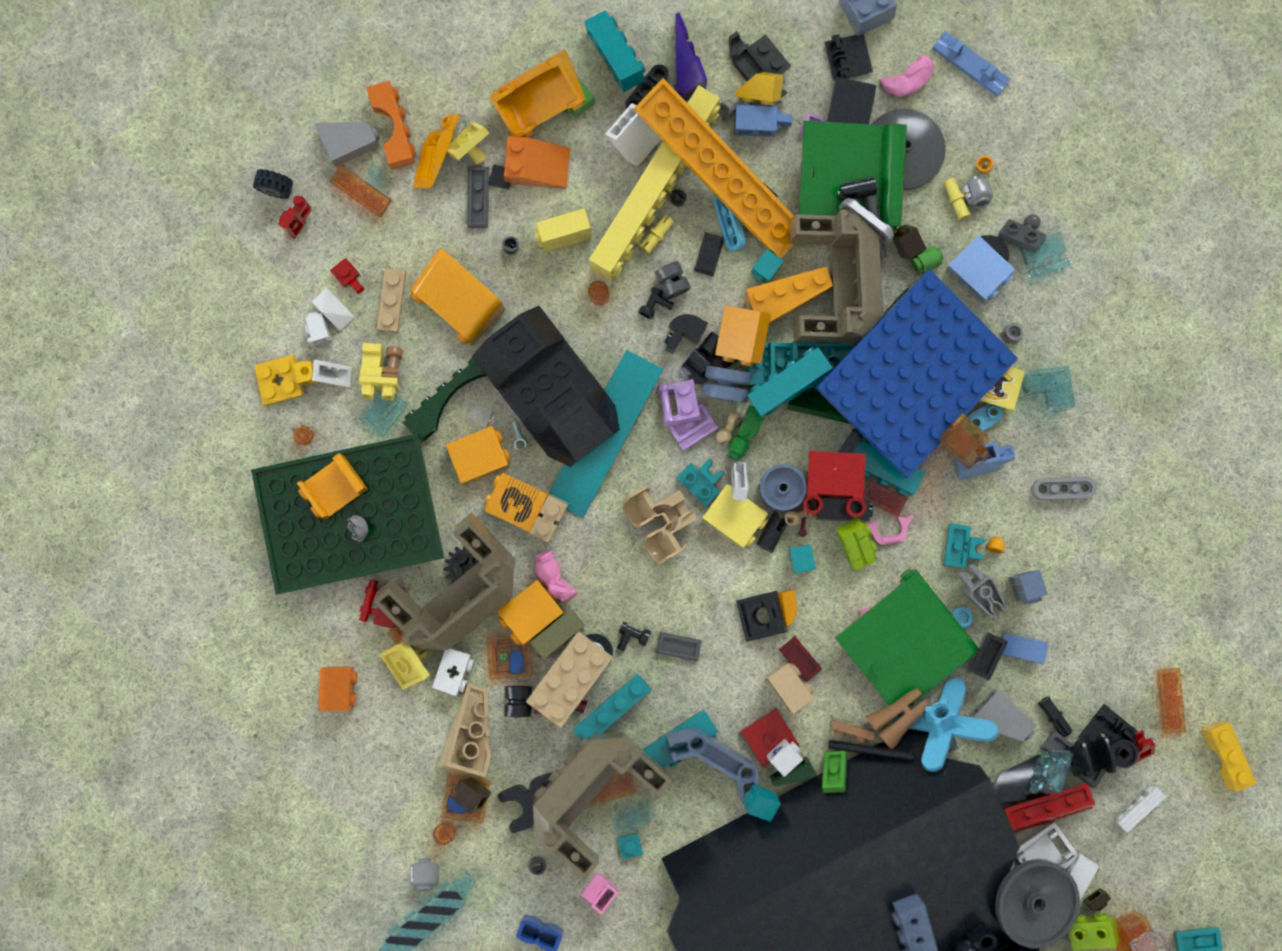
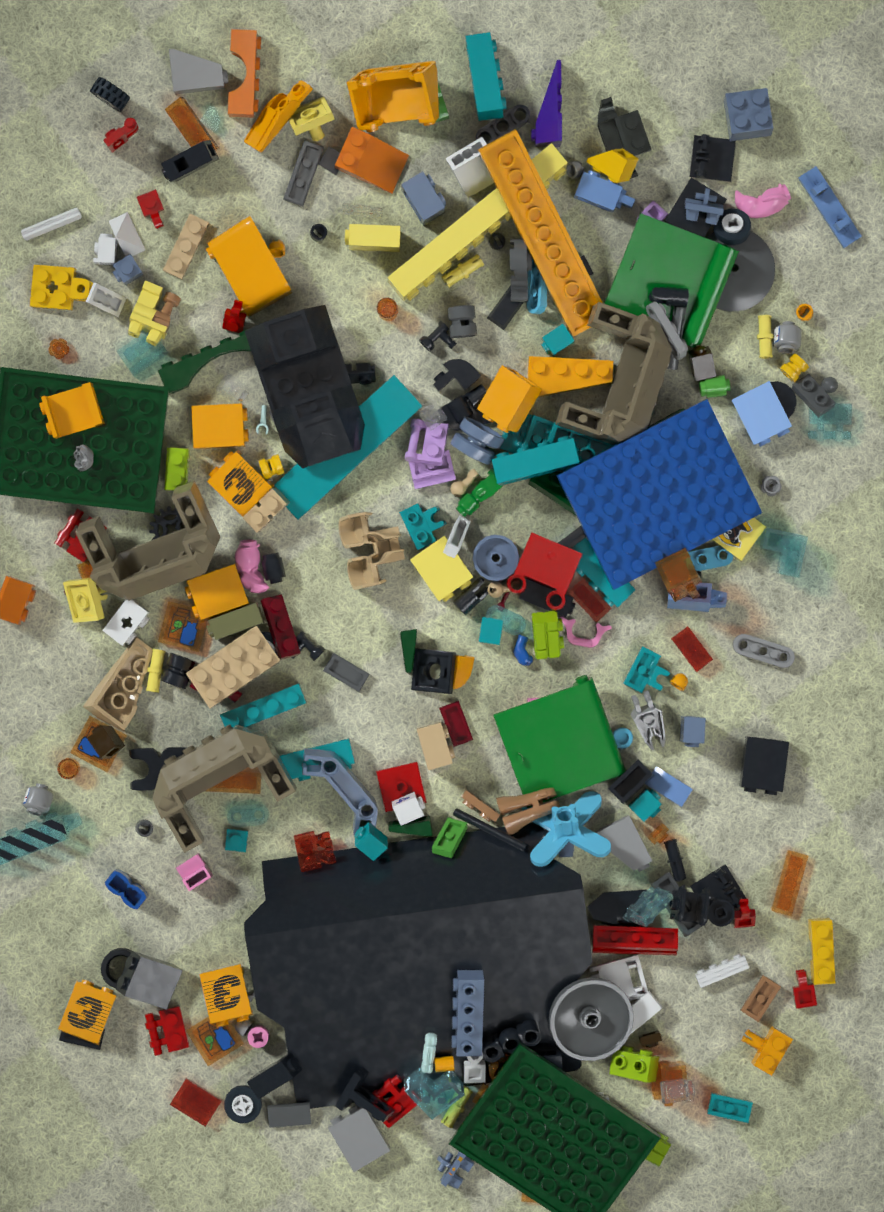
camera: 20 degrees right, 5 degrees up
(258, 322) = (51, 224): none -> white axle
(343, 340) = (127, 270): none -> sand blue brick
(367, 219) = (189, 161): none -> black brick
(451, 507) = (176, 468): none -> lime brick
(458, 350) = (234, 319): none -> red plate
(478, 268) = (280, 246): none -> light orange hinge
(496, 708) = (155, 670): none -> light yellow pin
(544, 472) = (277, 467): none -> yellow wheel
(575, 571) = (273, 568): none -> black brick
(597, 178) = (423, 198): none -> sand blue brick
(597, 360) = (363, 374): none -> black hinge
(601, 624) = (280, 627): none -> dark red plate
(702, 832) = (308, 852): none -> clear red plate
(708, 208) = (519, 263): none -> dark grey piece
(729, 600) = (408, 642): none -> dark green slope
(813, 540) = (507, 617): none -> clear light blue plate
(836, 569) = (520, 652): none -> blue arm
(869, 98) = (713, 209): none -> sand blue hips
(890, 108) = (733, 234): none -> black wheel
(994, 217) = (794, 368): none -> yellow wheel
(996, 510) = (691, 649): none -> clear red plate
(1009, 673) = (646, 804): none -> teal brick
(1031, 697) = (658, 834): none -> clear orange plate
(1106, 596) = (764, 765): none -> black brick
(1186, 822) = (760, 998): none -> medium nougat plate
(1216, 870) = (769, 1050): none -> light orange brick
(1226, 801) = (804, 993): none -> red plate

